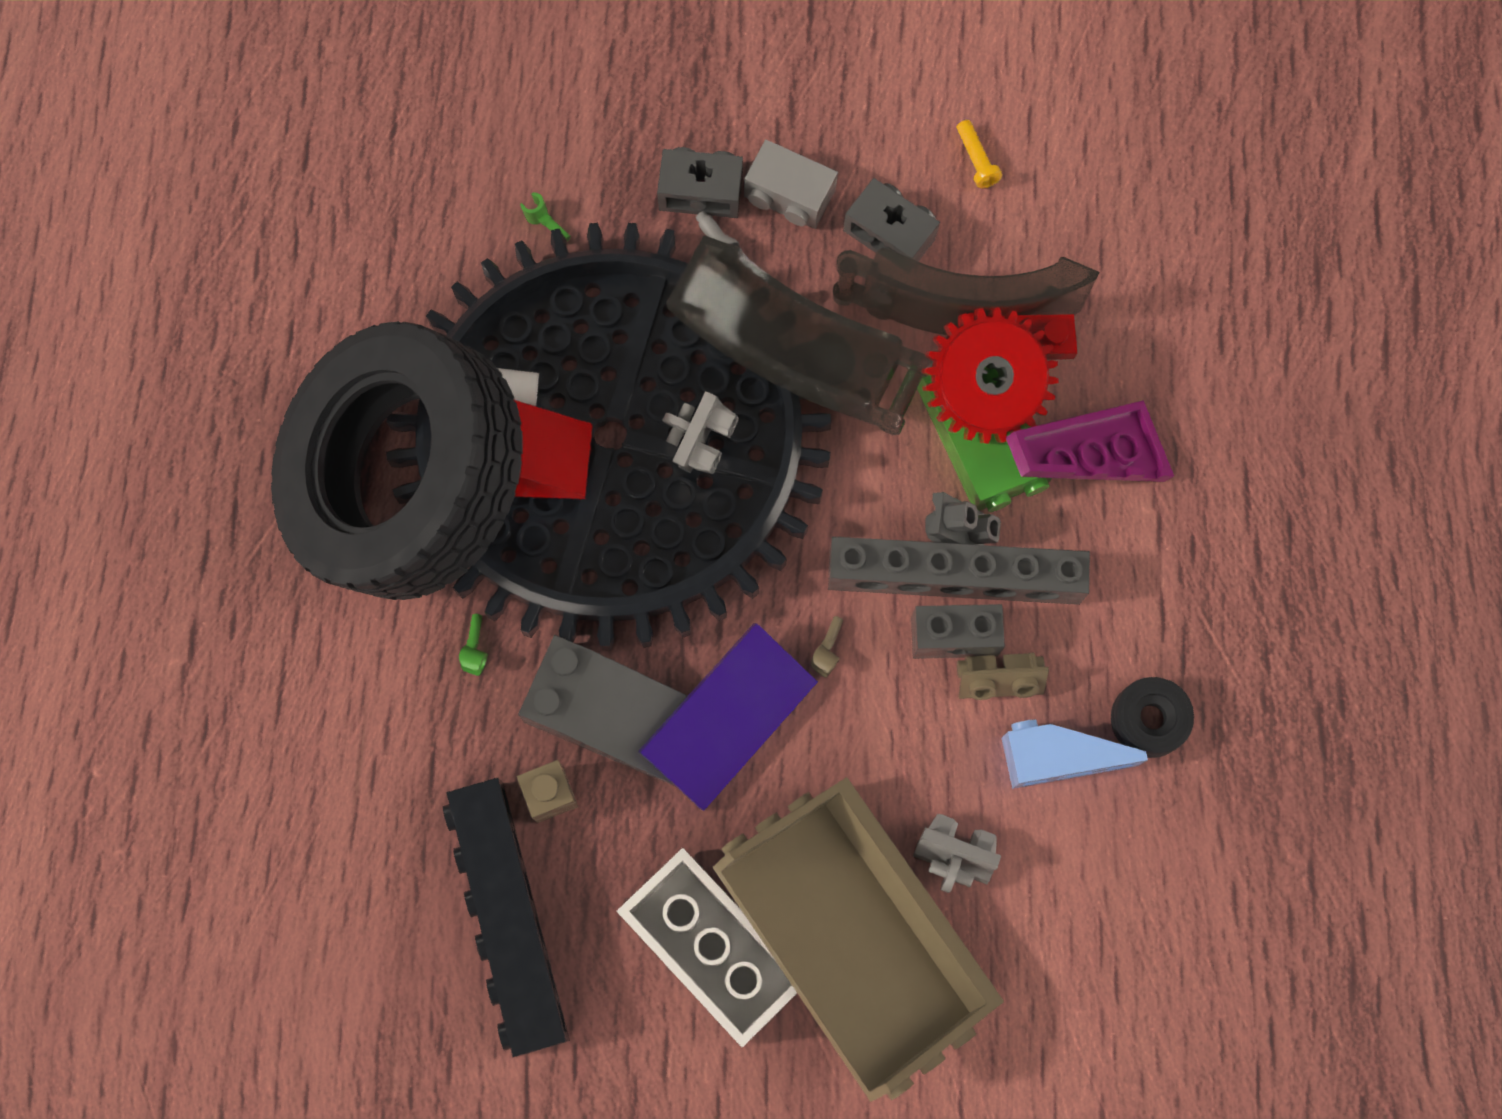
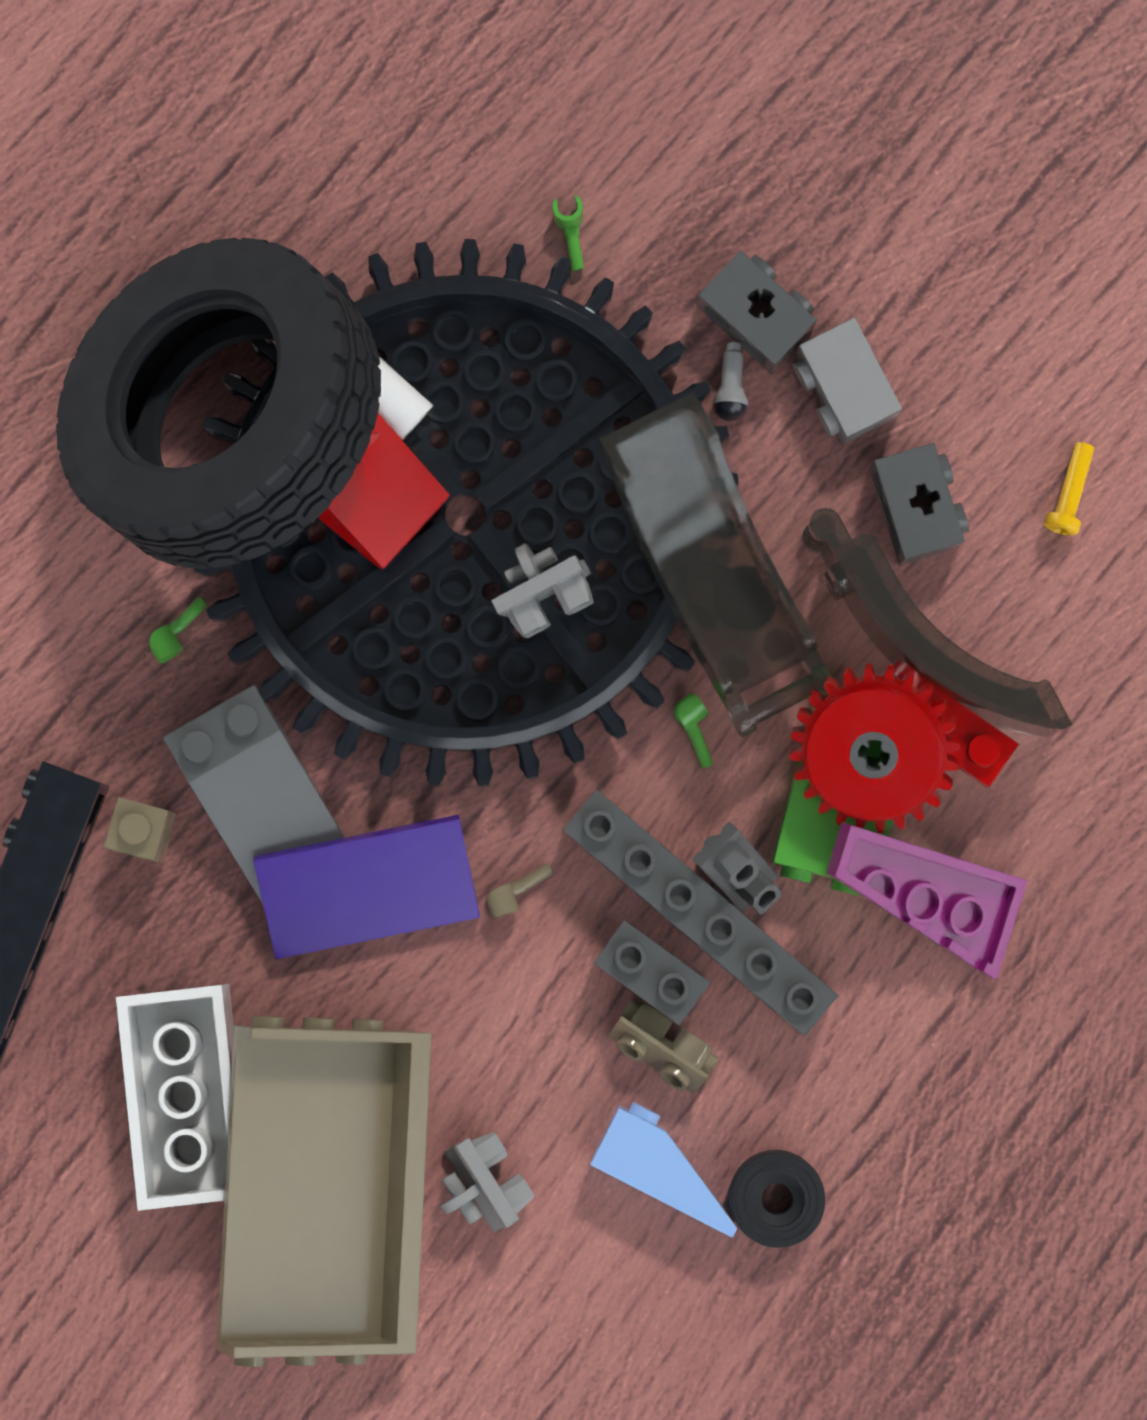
camera: 40 degrees right, 10 degrees up
(850, 457) = (688, 713): none -> bright green hand

